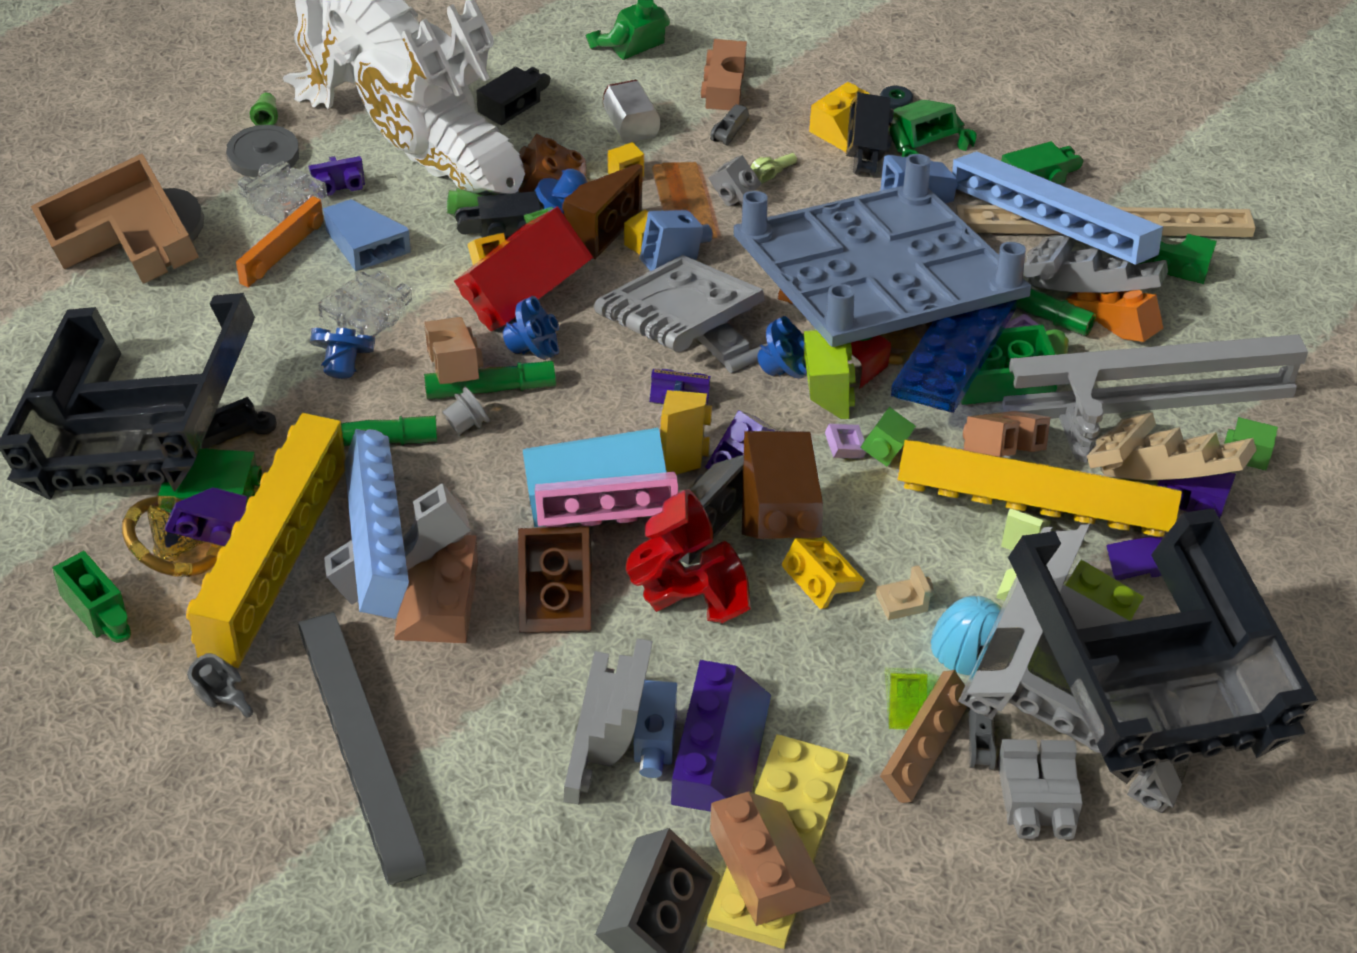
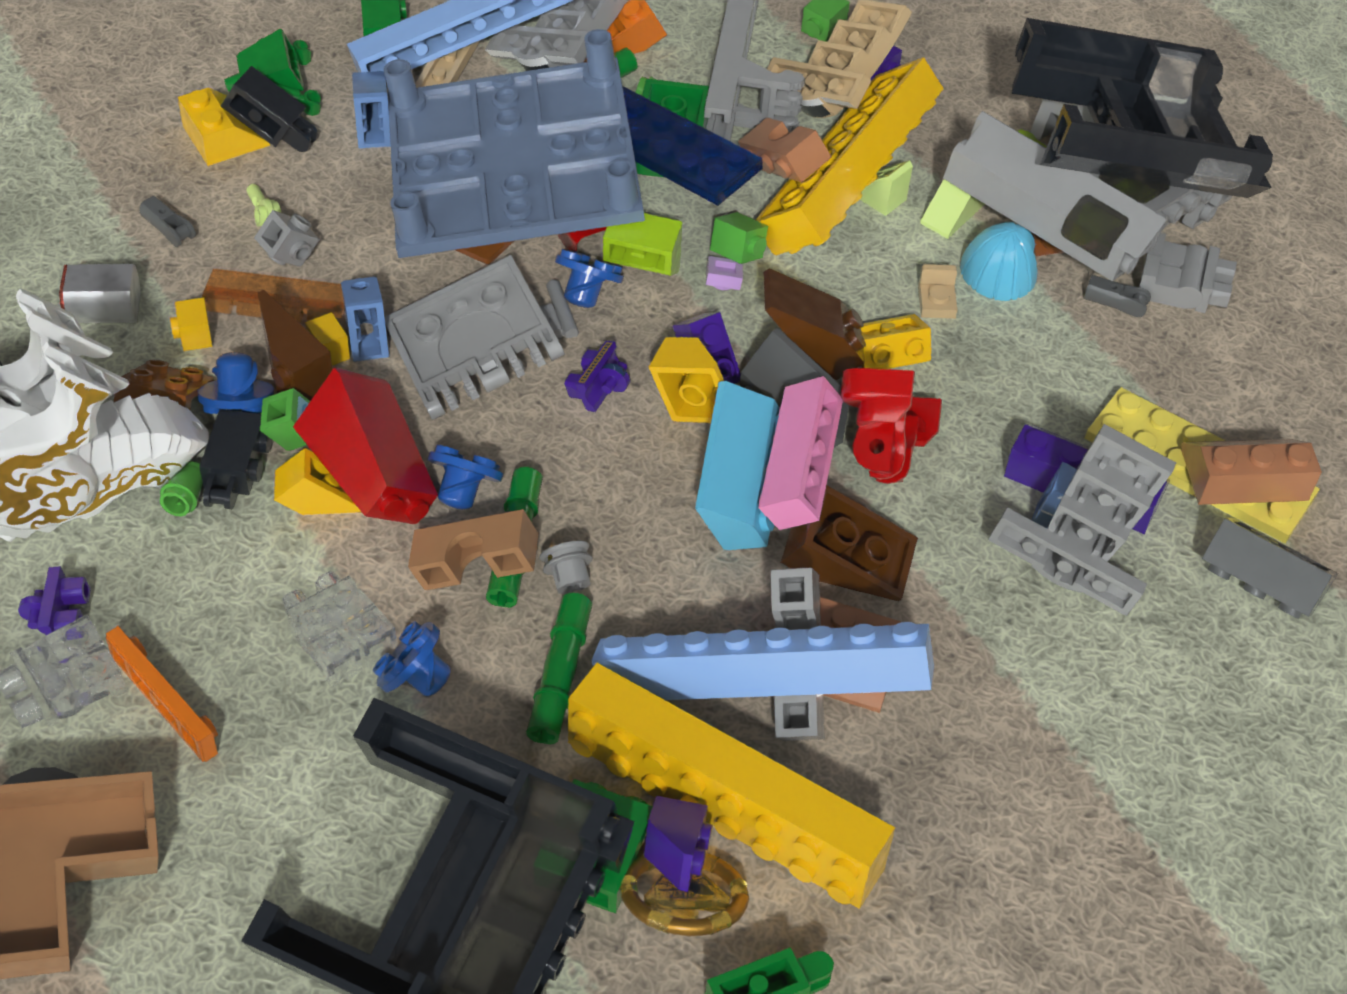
camera: 75 degrees left, 5 degrees up
(214, 682) = (914, 890): dark grey piece -> none
(362, 750) = (1030, 764): dark grey beam -> none
(365, 234) = (190, 603): medium blue slope -> none
(724, 74) = (52, 190): nougat arch -> none
(899, 96) = (187, 79): black wheel -> none
(904, 695) = (1056, 327): clear neon green slope -> none
(925, 738) = (1126, 333): medium nougat plate -> none
(1133, 557) = (940, 128): dark purple slope -> none

